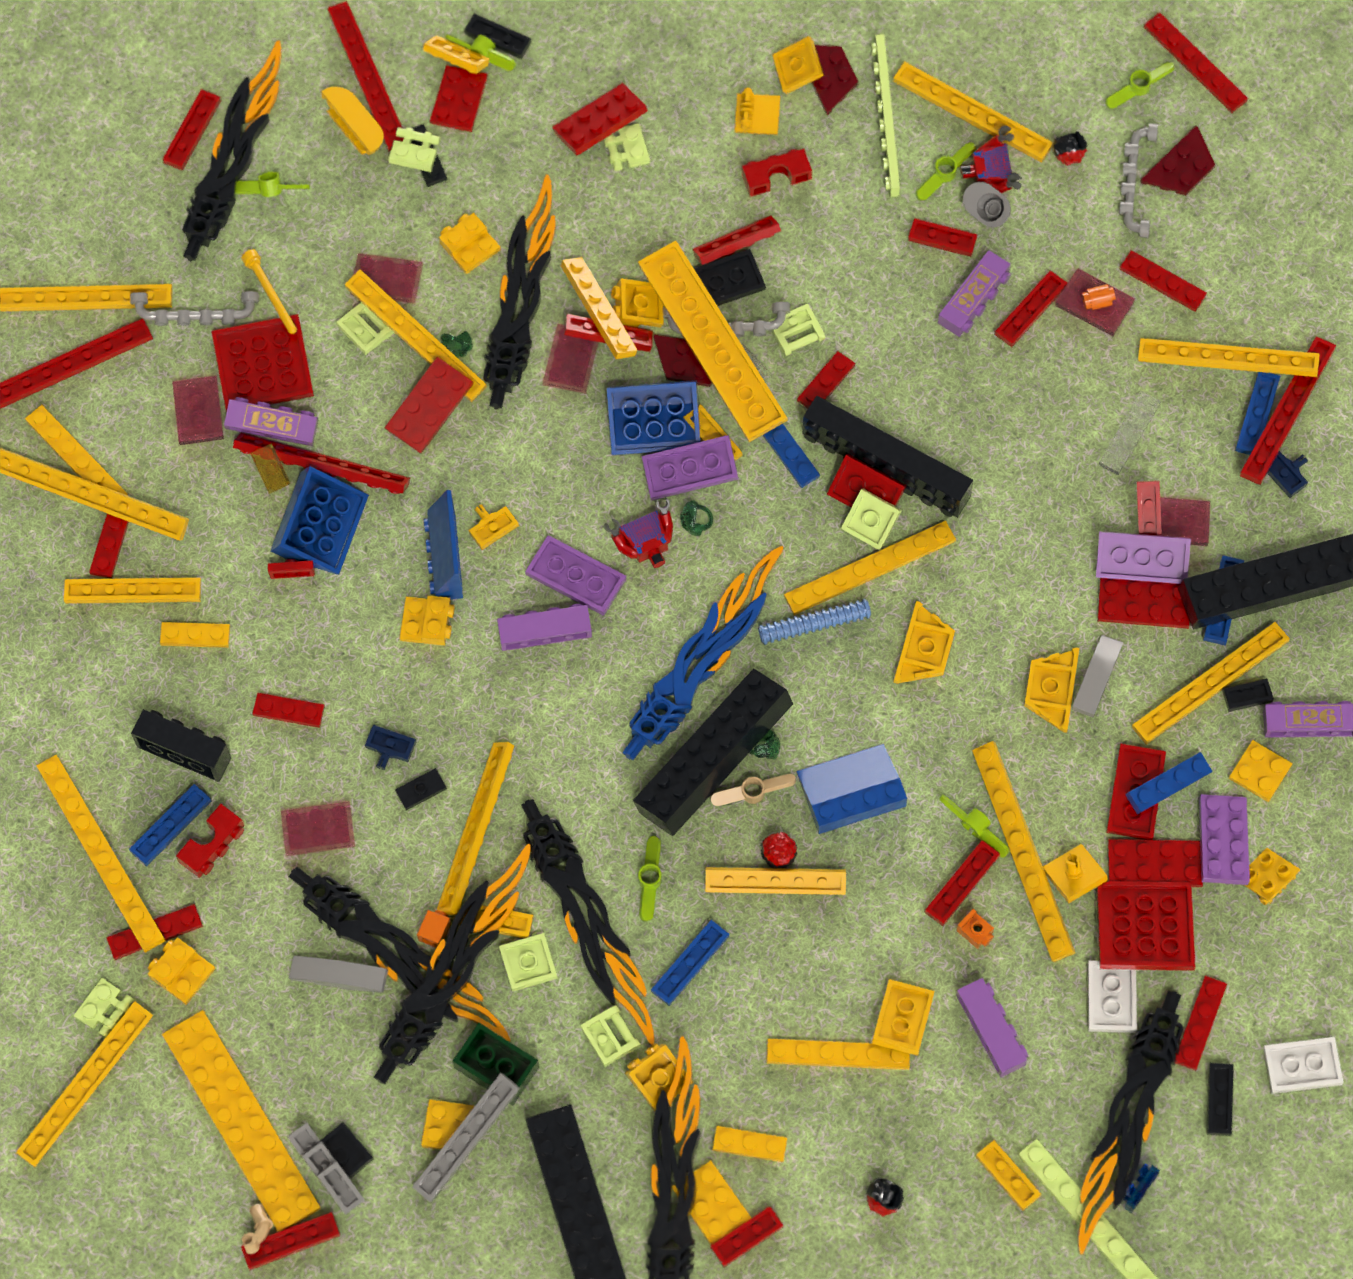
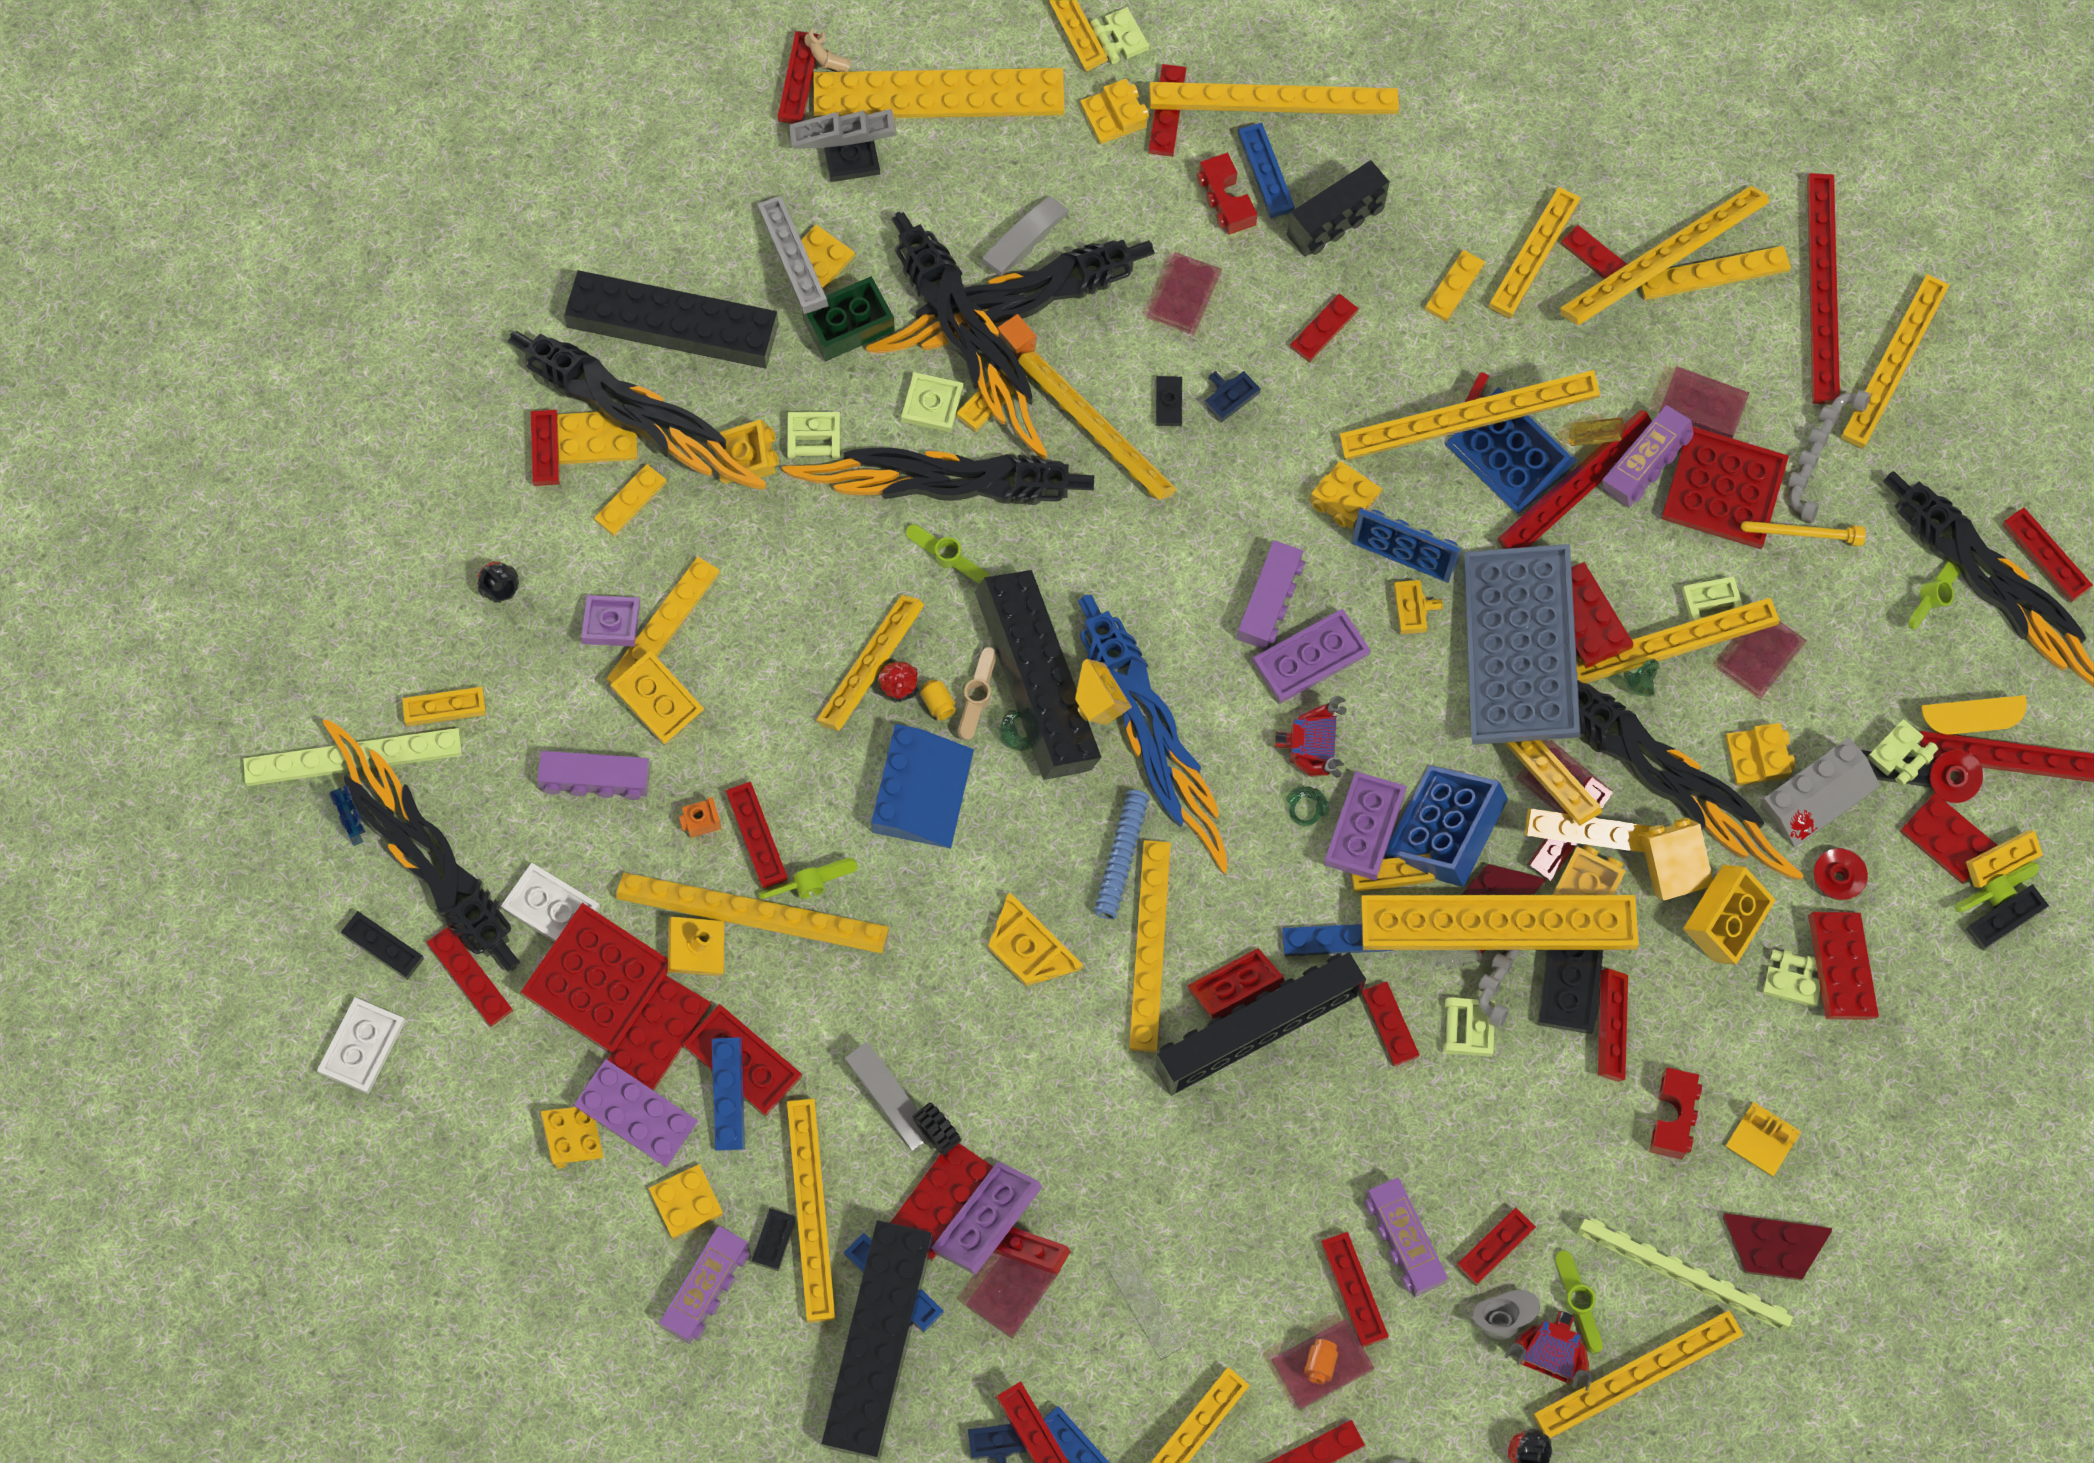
camera: 115 degrees right, 0 degrees up
(316, 554) = (1470, 415): none -> yellow plate
(410, 110) = (1968, 776): none -> red dish
(476, 190) = (1821, 792): none -> light grey slope
(483, 430) = (1521, 644): none -> sand blue plate
(531, 141) = (1845, 863): none -> red dish
(572, 369) = (1556, 780): none -> yellow plate
(590, 251) = (1677, 859): none -> yellow brick
(611, 200) = (1729, 914): none -> yellow brick
(690, 963) = (839, 542): blue plate -> none
(708, 688) = (1099, 694): none -> yellow slope
(775, 815) = (938, 699): none -> yellow brick
(797, 65) = (1800, 1211): yellow plate -> none
(861, 1091) = (610, 620): none -> medium lavender plate
(871, 519) = (1200, 970): yellowish green plate -> none
(1052, 687) = (906, 1046): yellow wing -> none
(1103, 624) = (936, 1128): none -> black tyre

